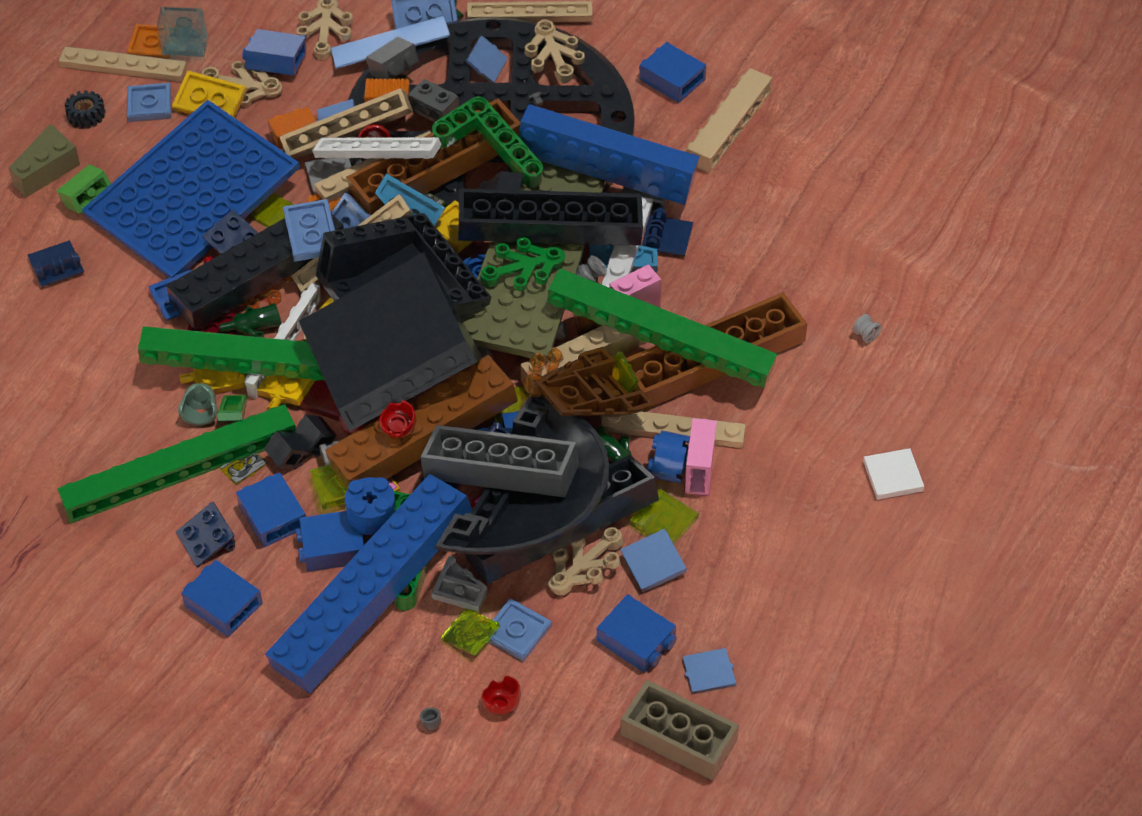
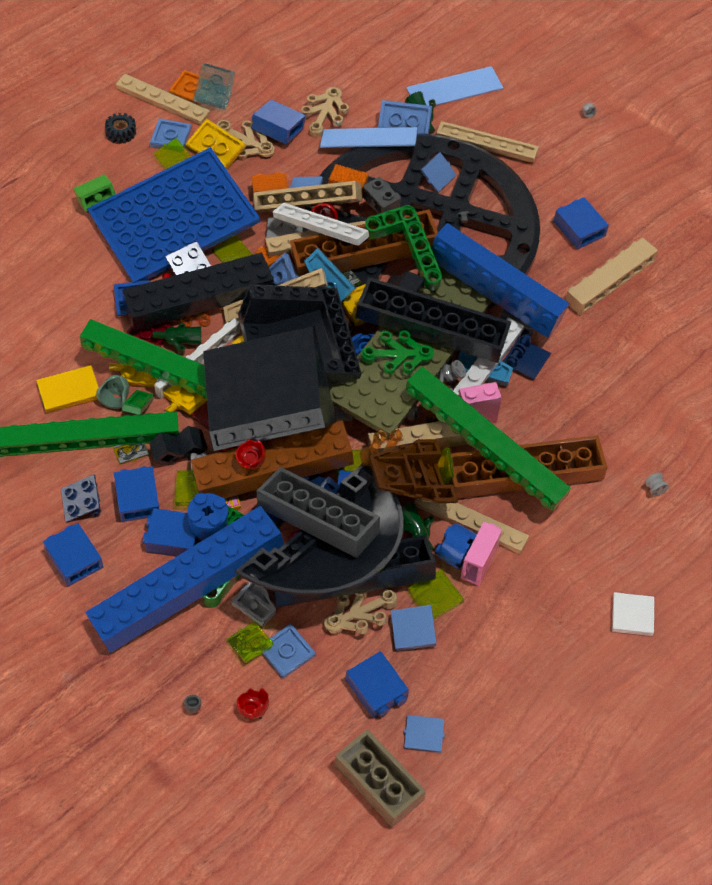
camera: 15 degrees right, 5 degrees up
(43, 161) = (73, 162): olive wedge -> none
(55, 263) = (53, 245): dark blue hinge -> none
(140, 418) = (68, 389): none -> yellow tile
(159, 122) = (171, 153): none -> clear neon green piece
(306, 227) = (244, 270): medium blue tile -> none
(392, 59) = (362, 153): dark grey brick -> none
(546, 31) = (491, 162): tan plant -> none

